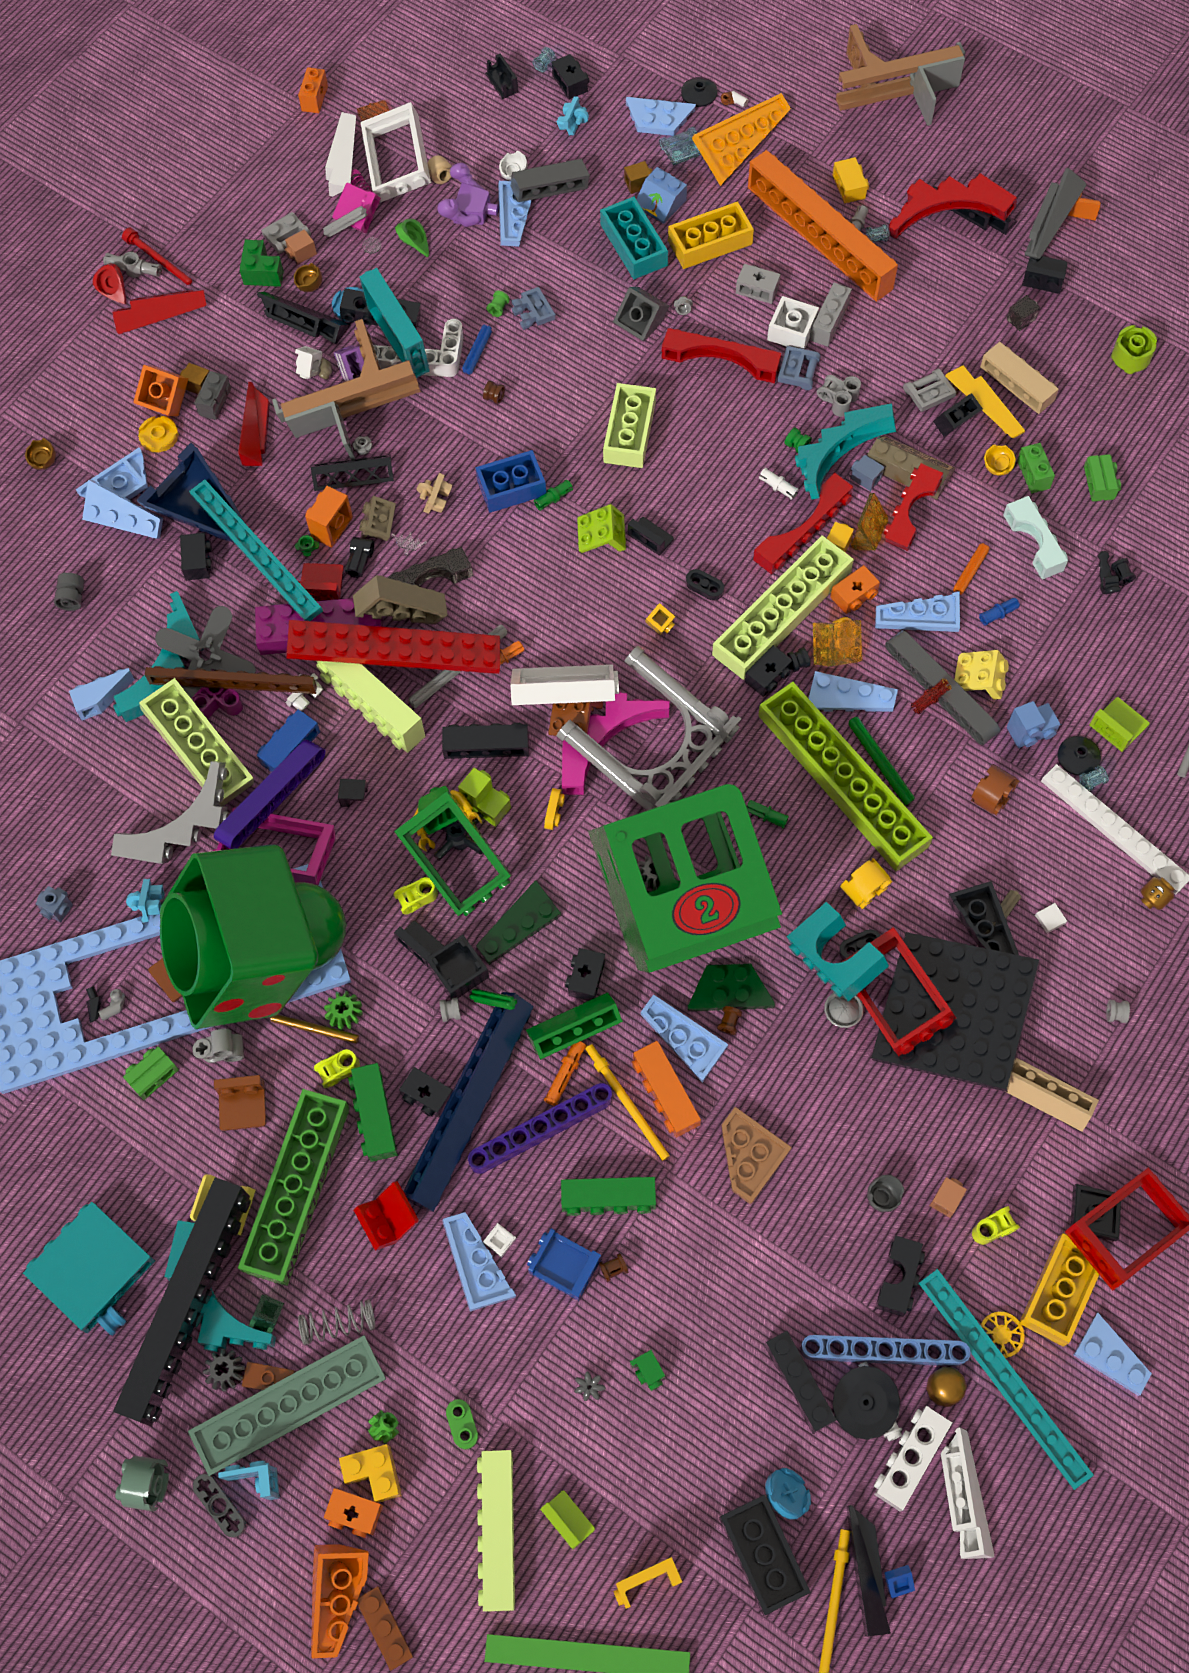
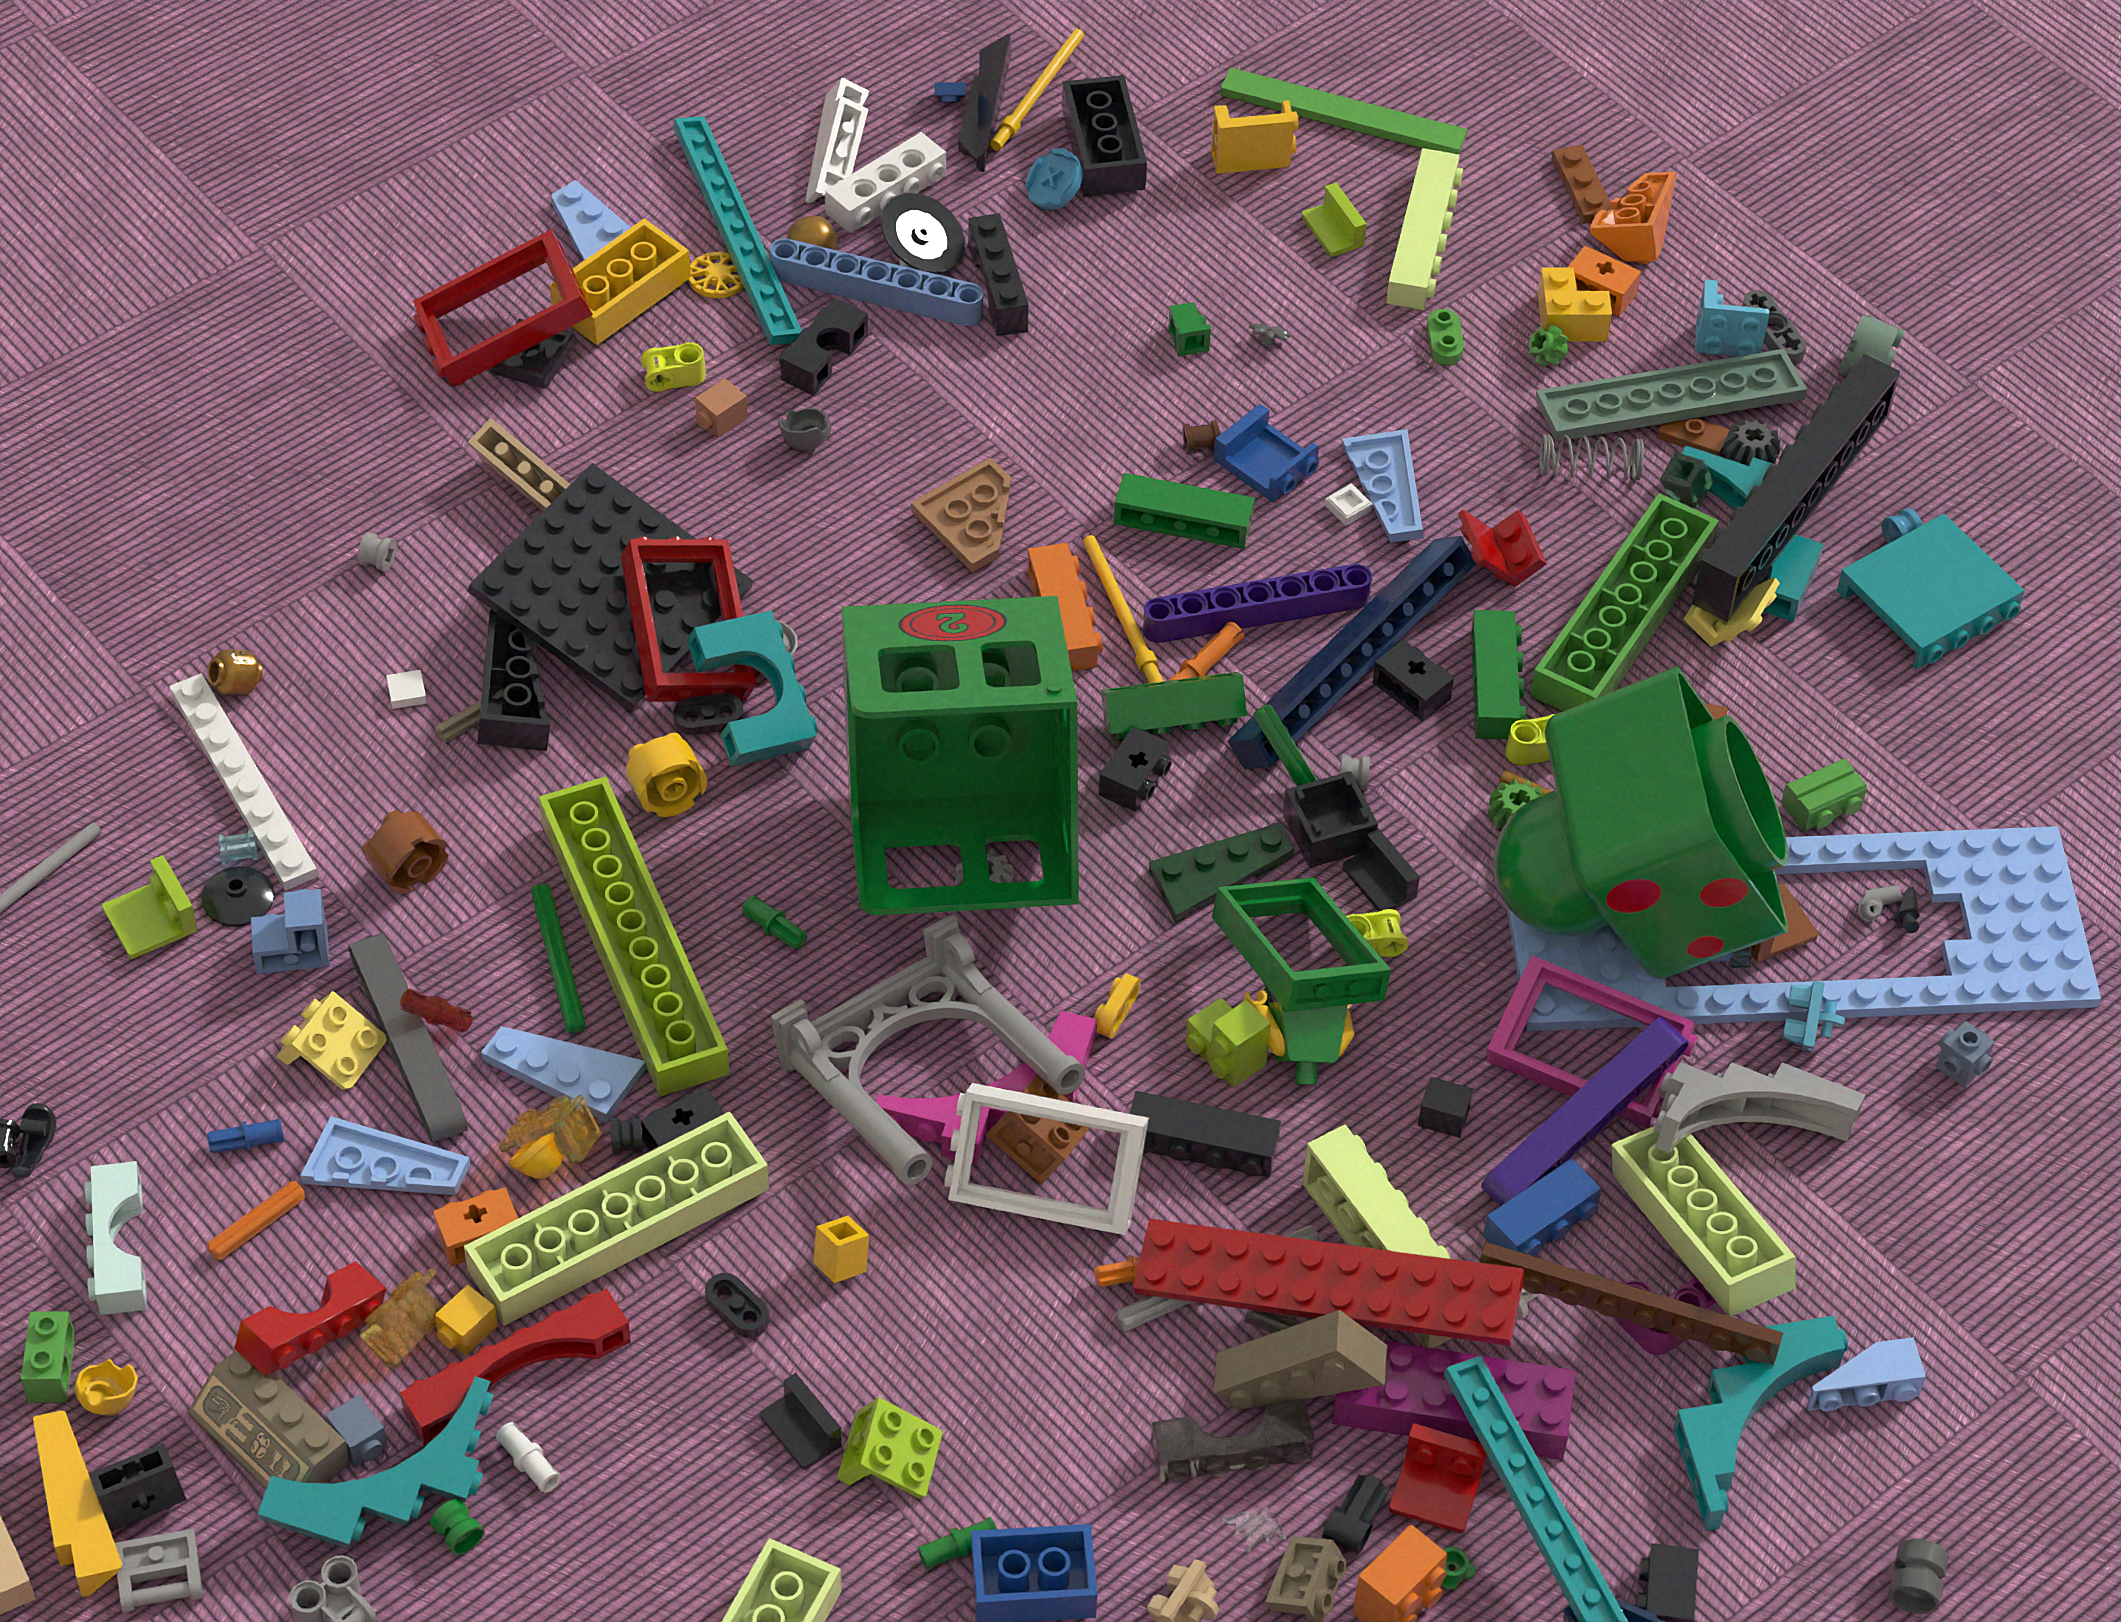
camera: 170 degrees left, 15 degrees down
(212, 639) = (1657, 1392): dark grey piece -> none

